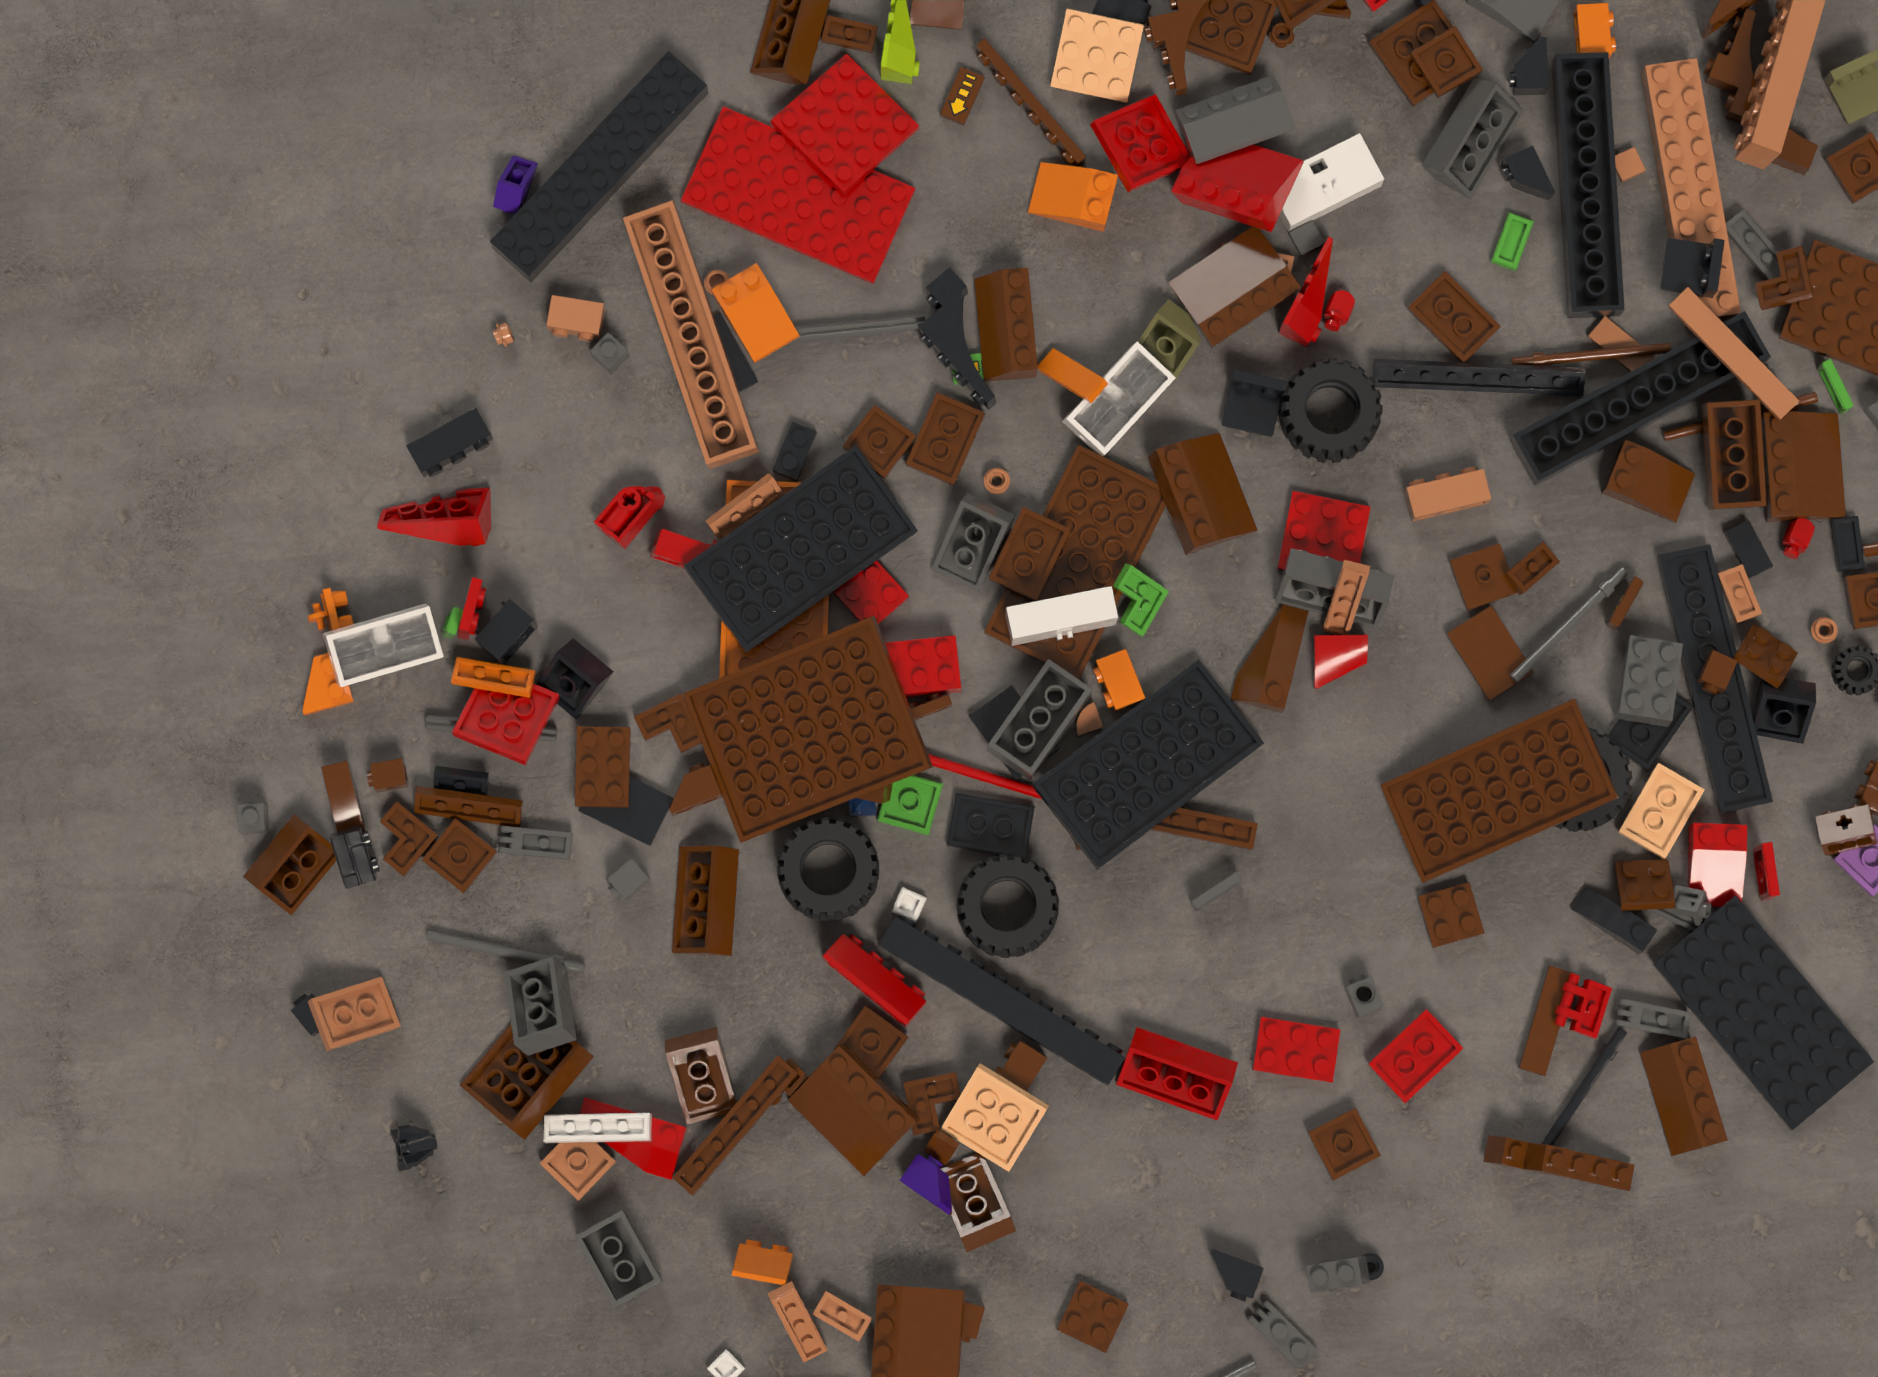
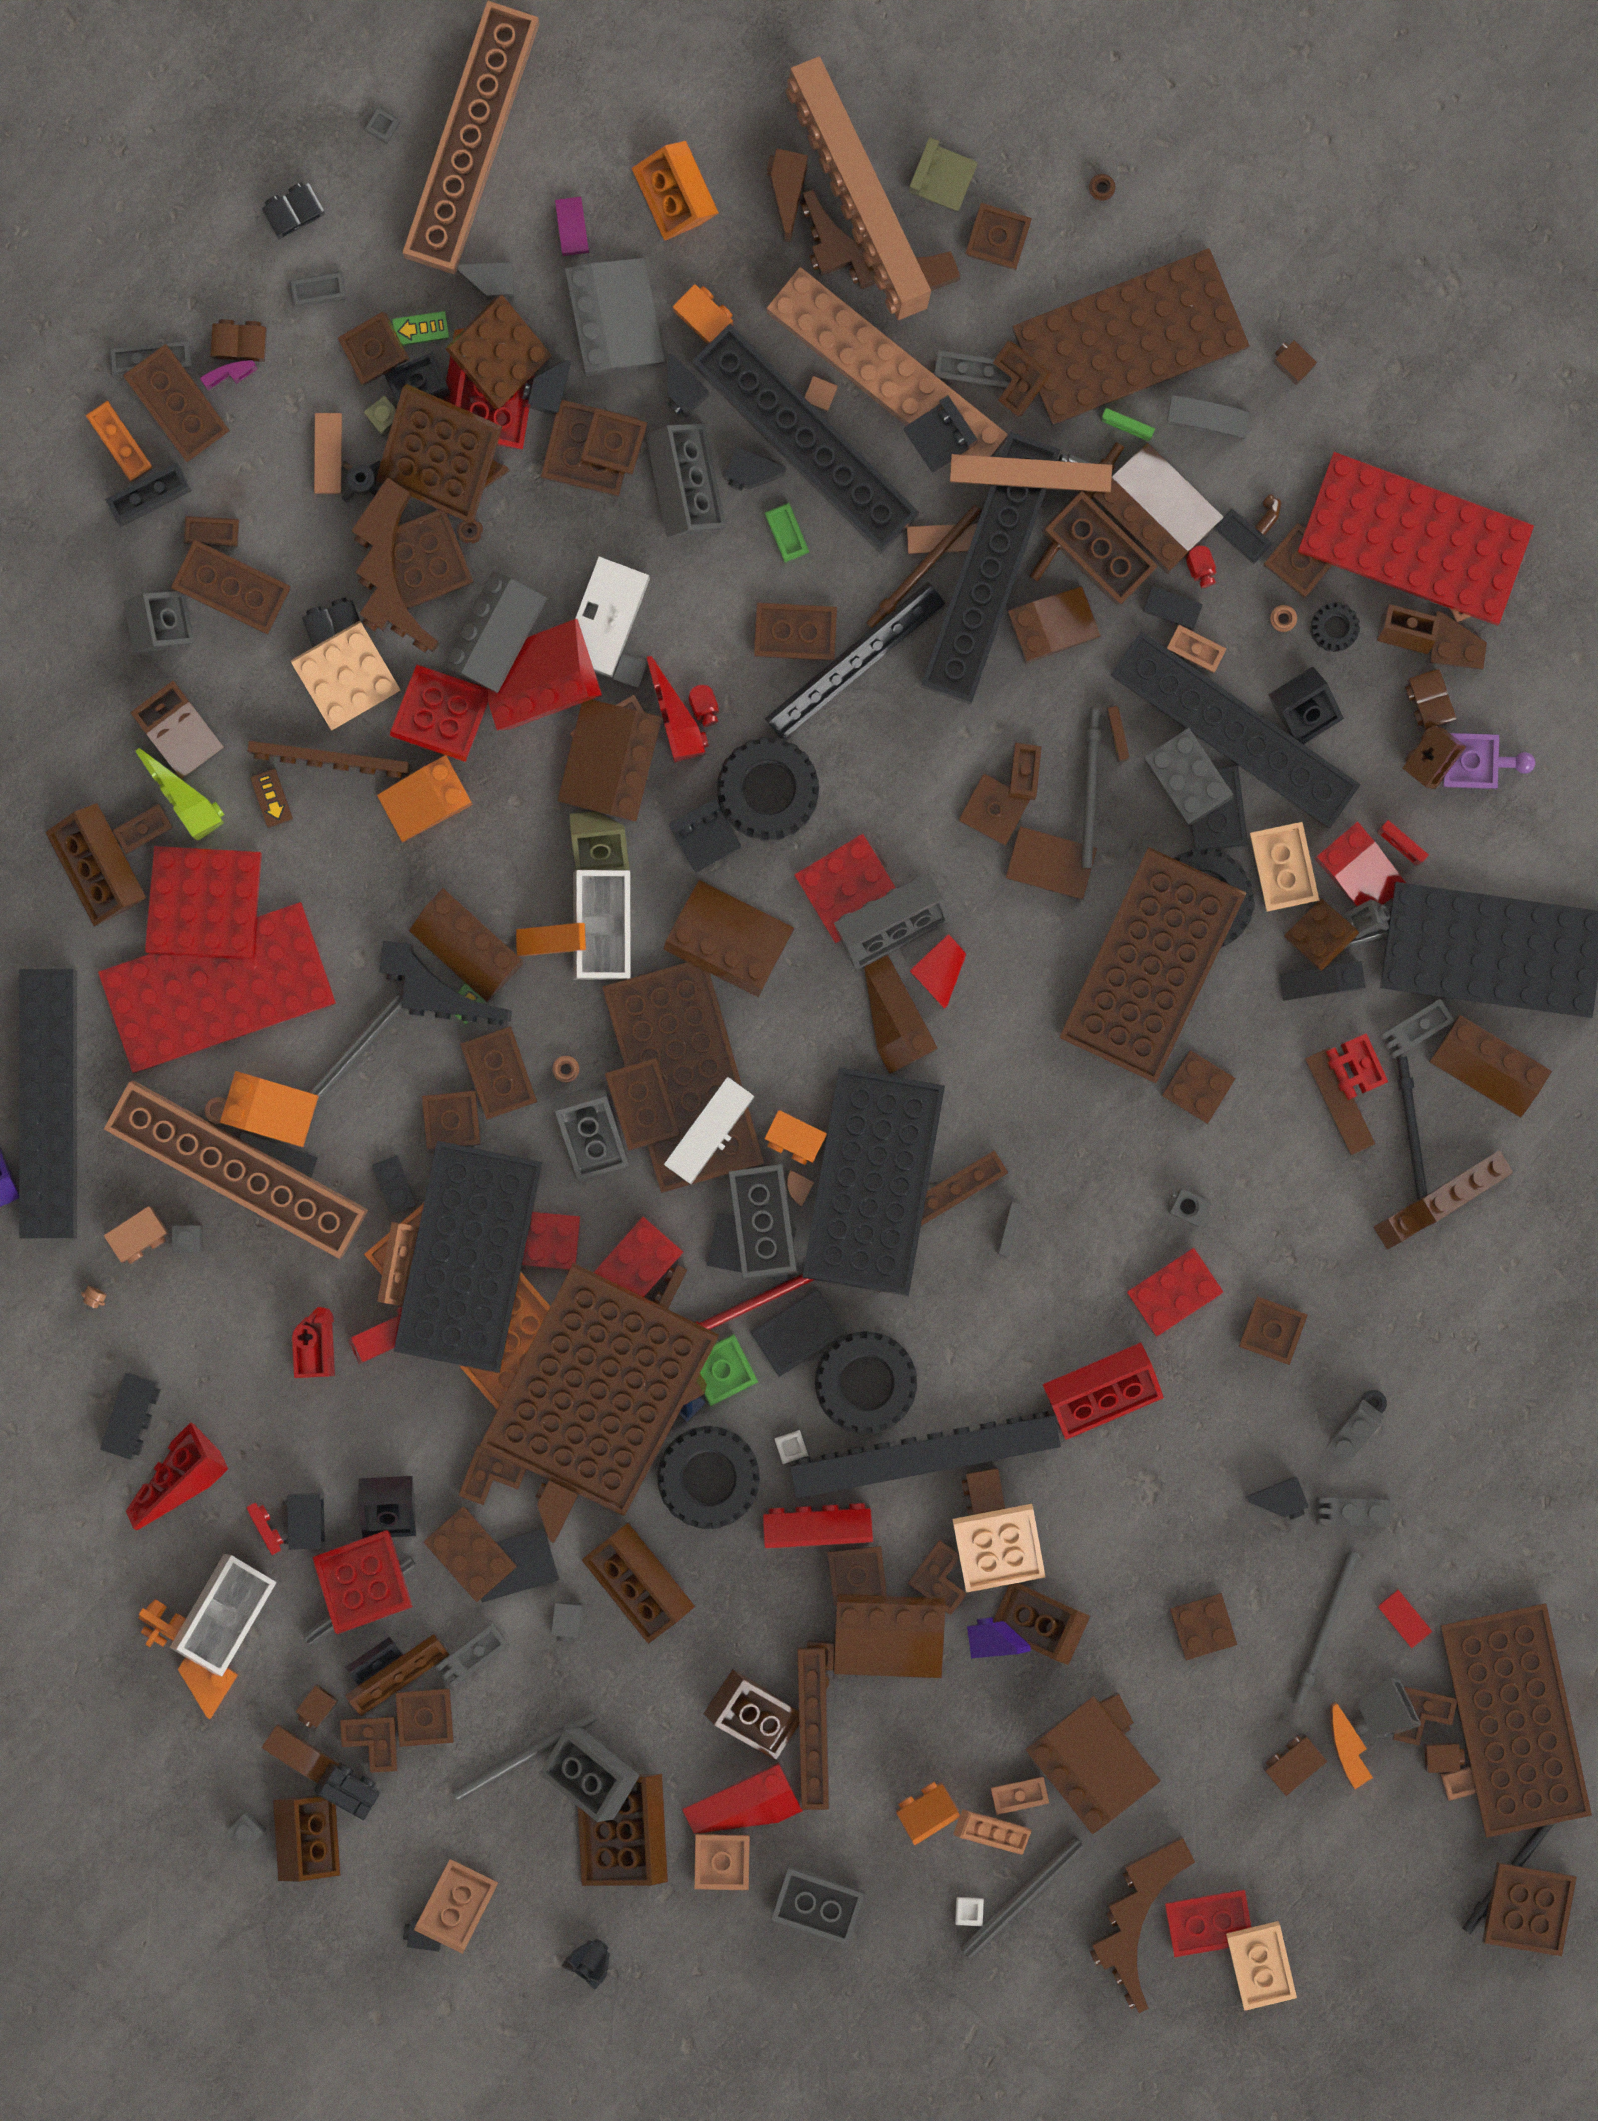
camera: 40 degrees left, 5 degrees up
(452, 622) = (258, 1550): bright green tile -> none
(493, 677) = (326, 1562): orange tile -> none
(597, 1127) = (713, 1824): white tile -> none
(941, 1147) = (979, 1604): reddish brown tile -> none
(1145, 595) = (757, 1056): bright green plate -> none
(1346, 598) = (909, 924): nougat tile -> none
(1415, 1056) = (1267, 1217): red plate -> none
(1447, 494) = (911, 771): nougat brick -> none
(1716, 672) = (1233, 726): reddish brown brick -> none
(1765, 655) = (1257, 679): reddish brown plate -> none

